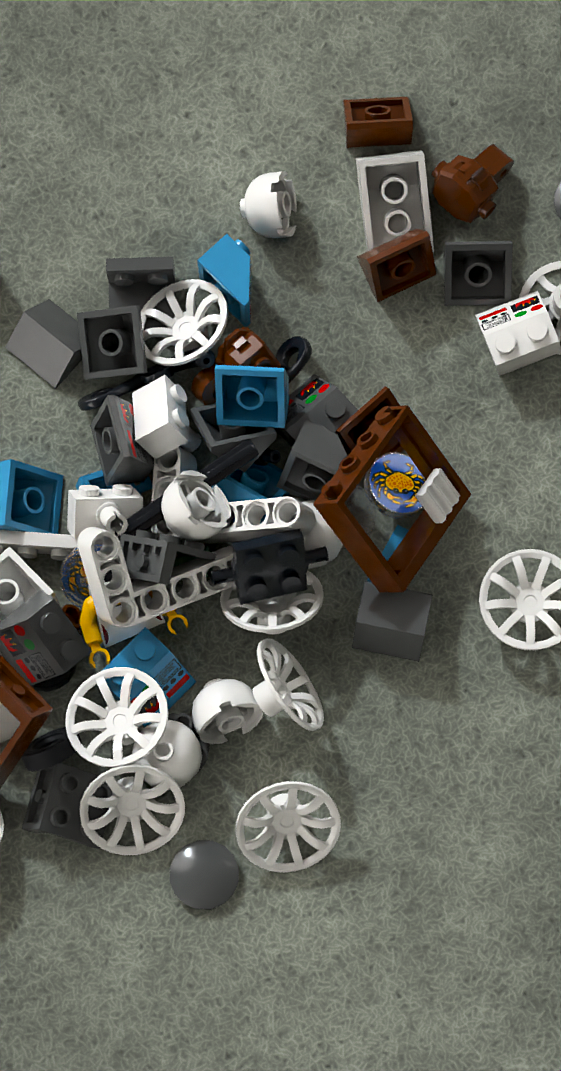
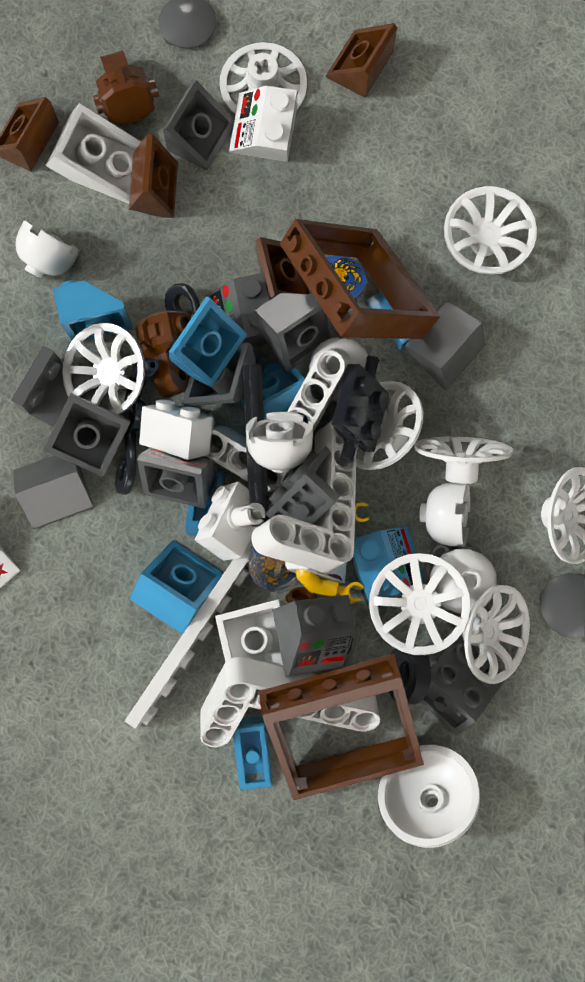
camera: 65 degrees left, 5 degrees up
(438, 495) = (373, 248): white piece -> none

